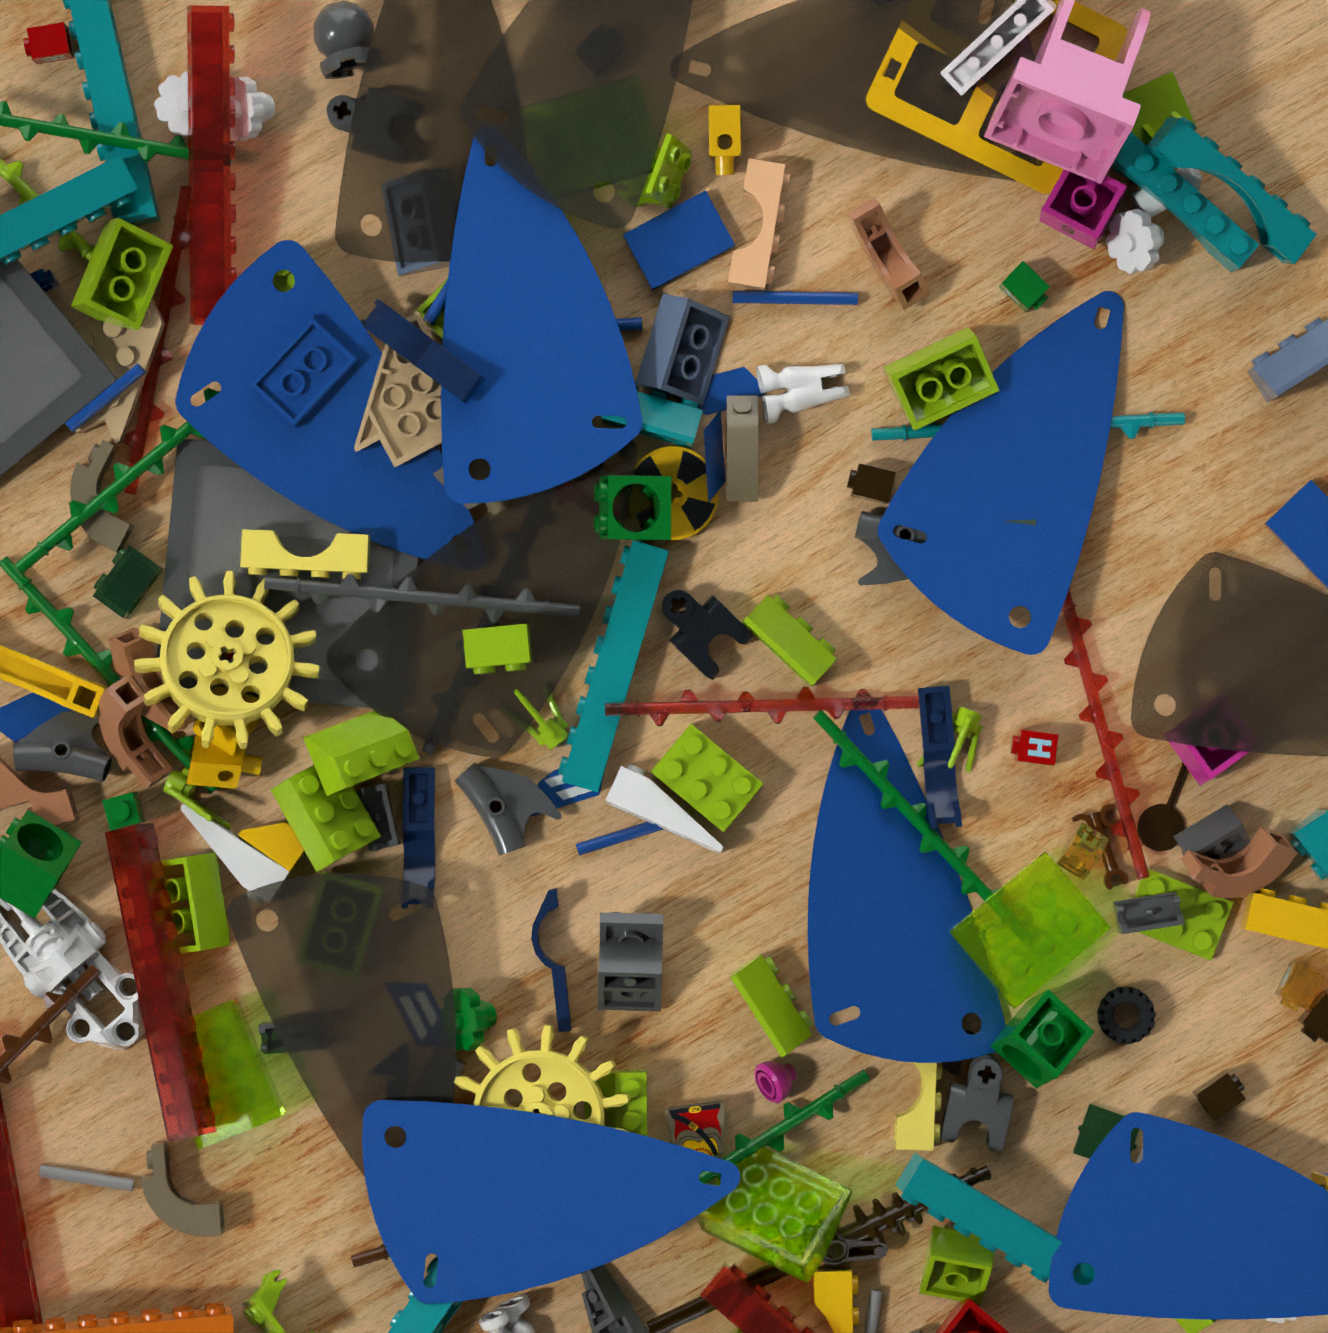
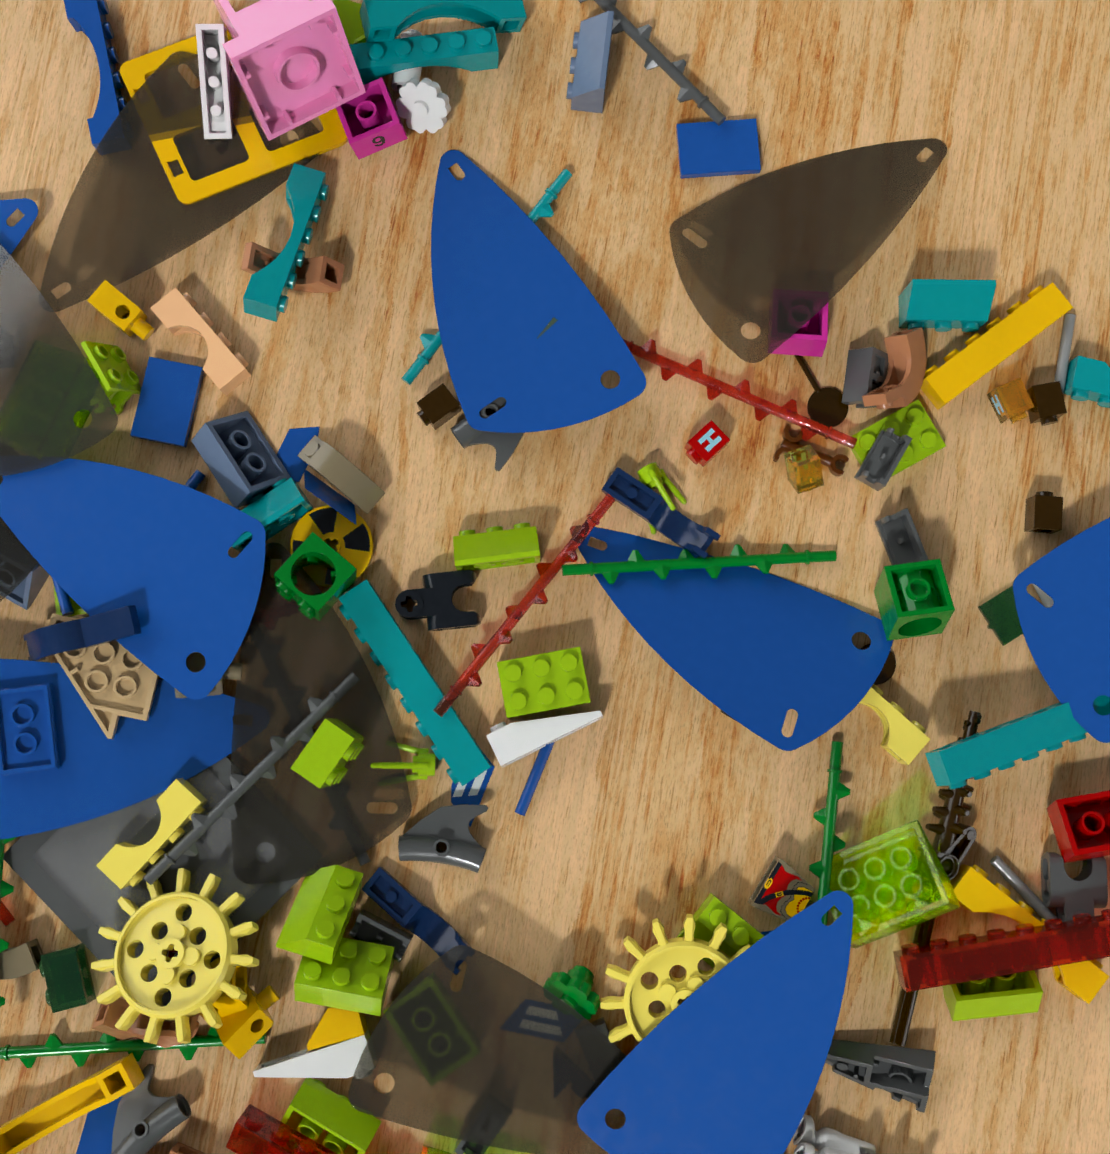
camera: 55 degrees left, 5 degrees down
(123, 811) = (222, 1118): green brick -> none
(124, 733) = (168, 1071): nougat arch -> none
(177, 787) = (249, 1064): lime plant -> none
(558, 970) = (592, 898): dark blue piece -> none
(630, 961) = (627, 842): dark grey bracket -> none
(772, 1004) = (738, 767): lime slope -> none
(774, 1080) = (791, 809): dark pink brick -> none
(781, 297) = (272, 357): blue bar -> none
(803, 385) = (335, 400): white piece -> none
(853, 252) = (270, 285): none -> teal arch
(941, 378) = (407, 303): lime slope -> none
(955, 1266) = (1022, 790): lime slope -> none
(980, 1102) = (919, 679): dark grey piece -> none
(1025, 287) = (394, 202): green brick -> none
(1029, 930) = (829, 548): clear neon green slope -> none
(1091, 987) = (901, 538): none -> dark grey hinge
(1143, 1025) = (953, 525): black tyre -> none

